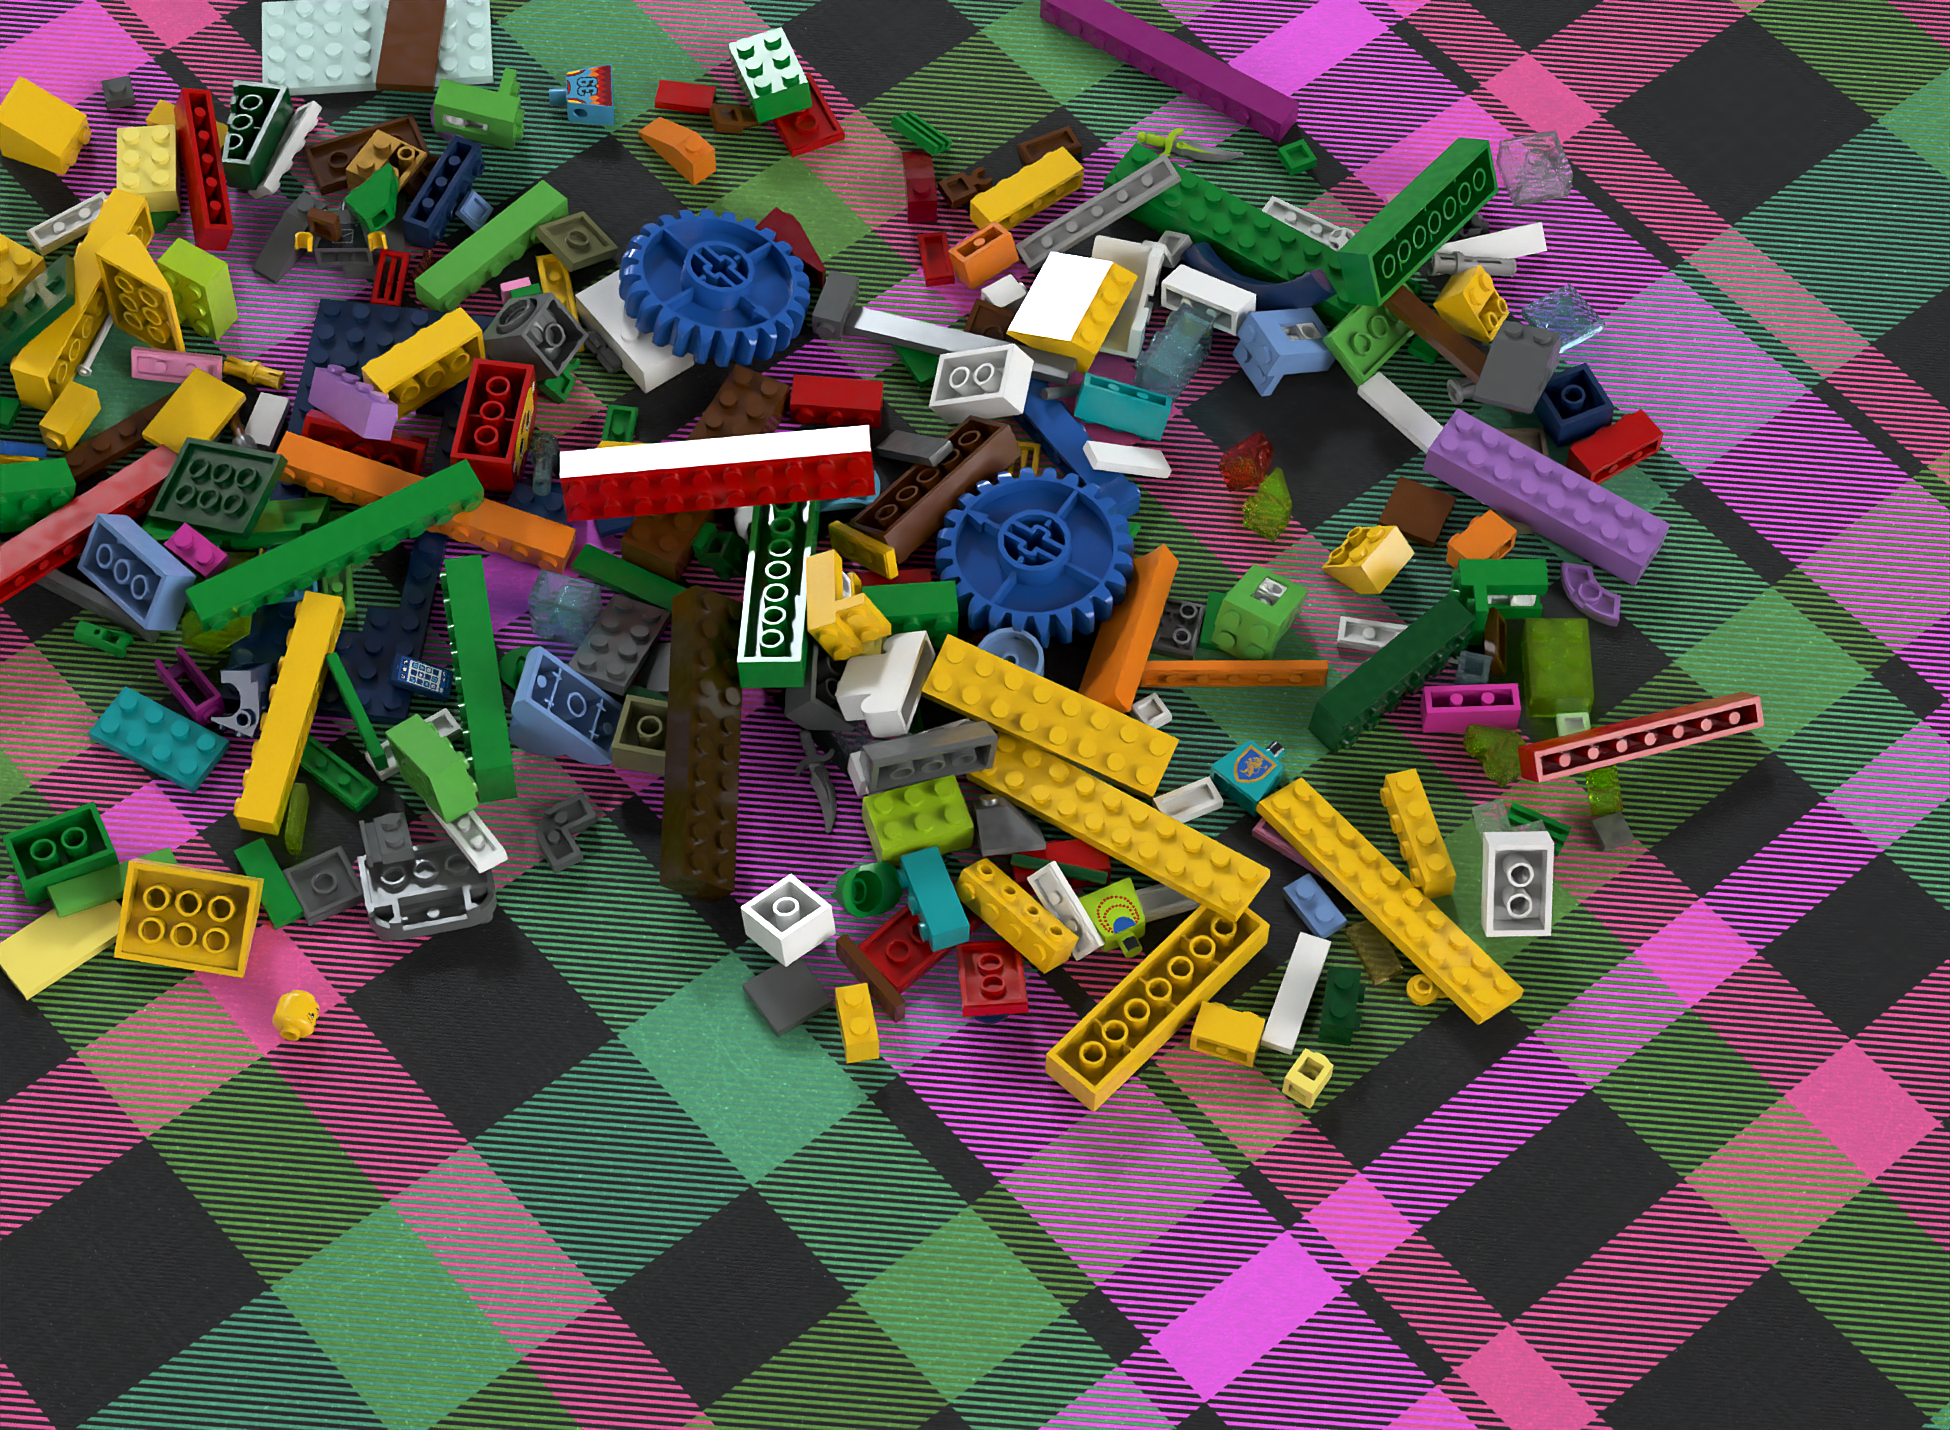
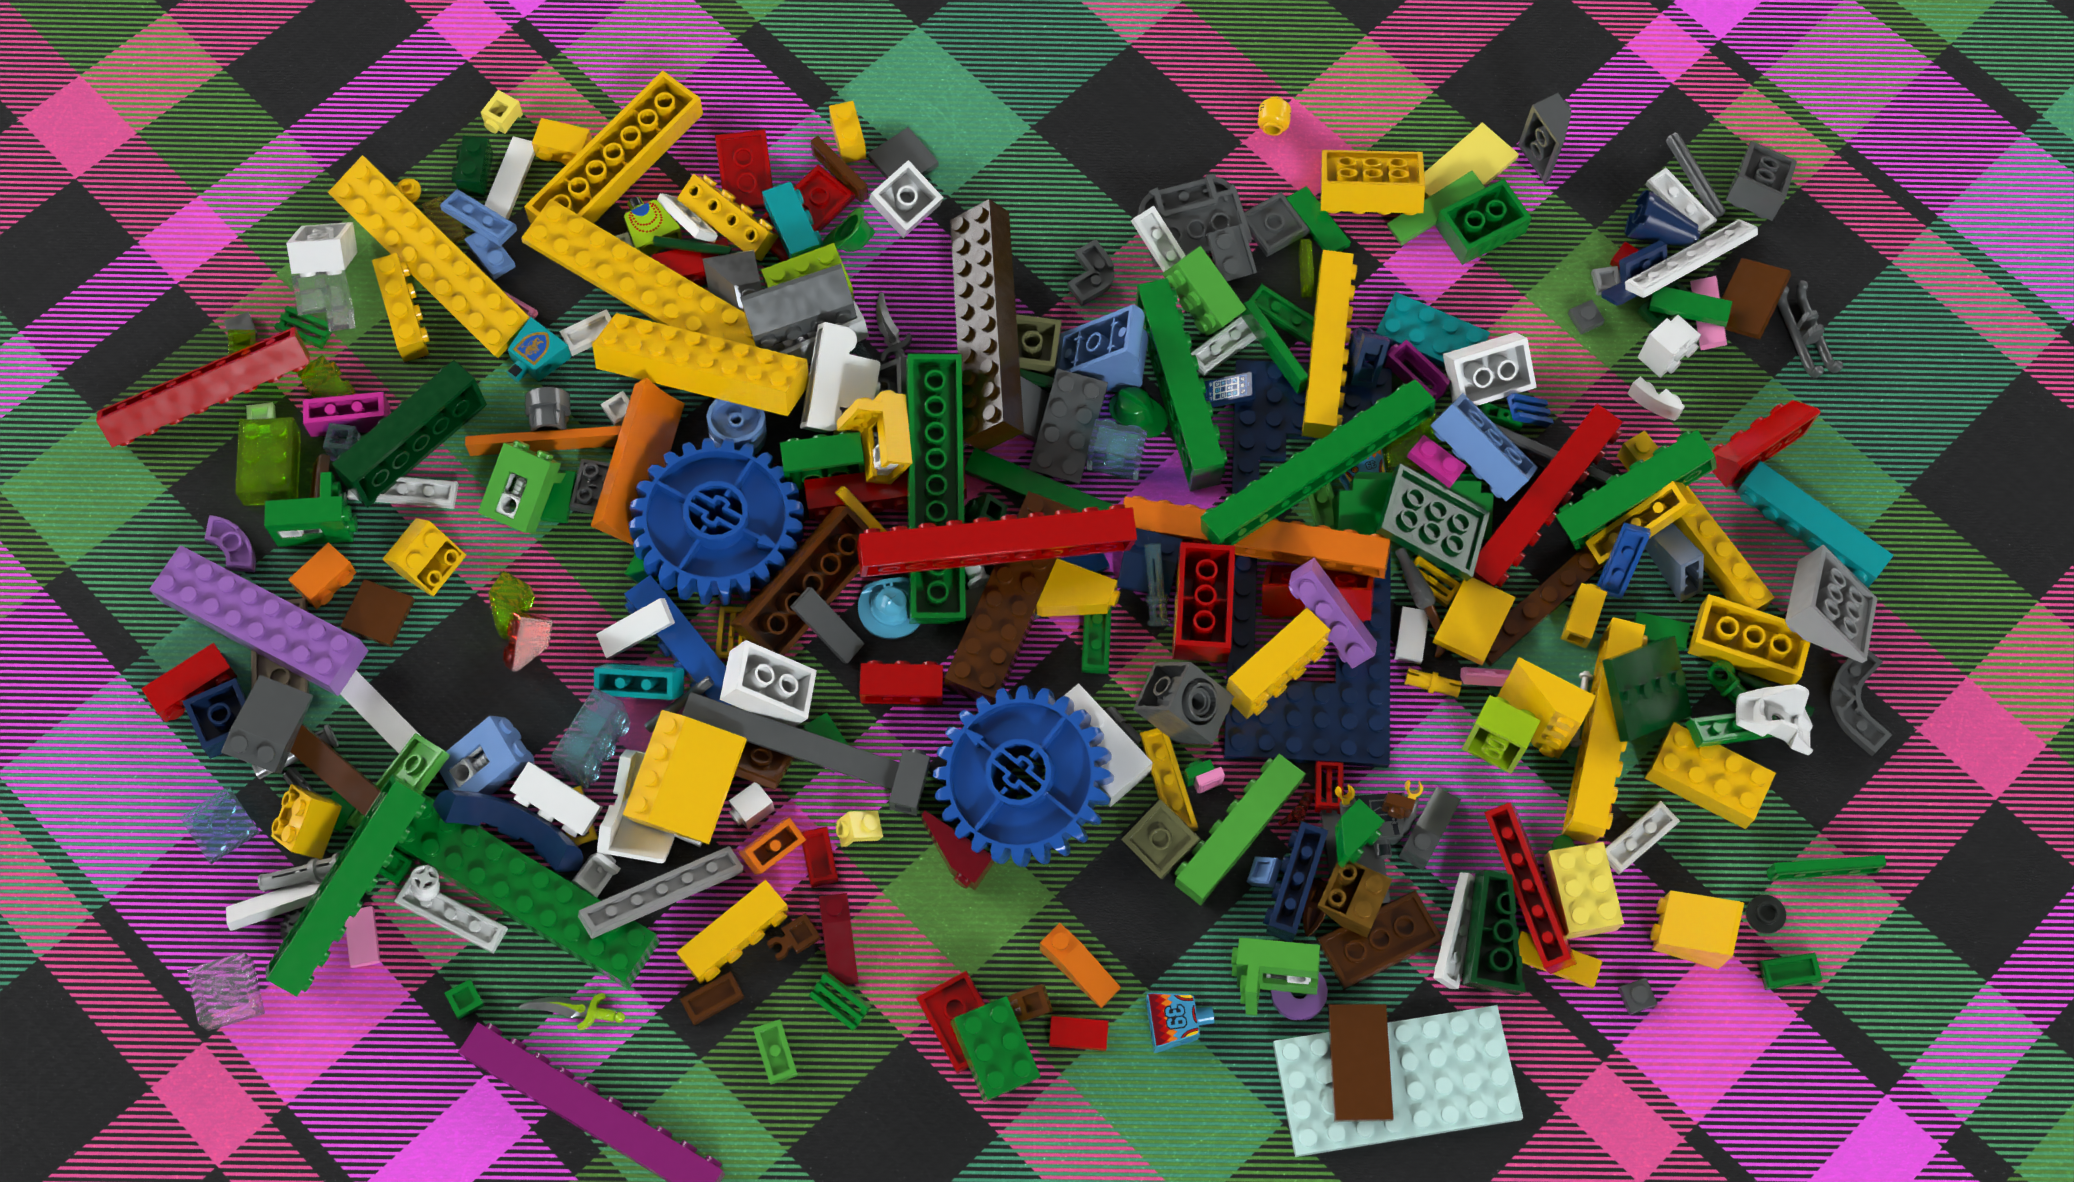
camera: 175 degrees right, 10 degrees up
(68, 629) = (1529, 405): none -> blue tile
(104, 668) = (1490, 369): none -> white brick
(891, 275) = (858, 827): none -> light yellow bracket
(987, 97) = (775, 1052): none -> bright green plate
(1233, 695) = (547, 408): none -> dark grey piece
(1328, 936) = (478, 217): none -> medium blue tile

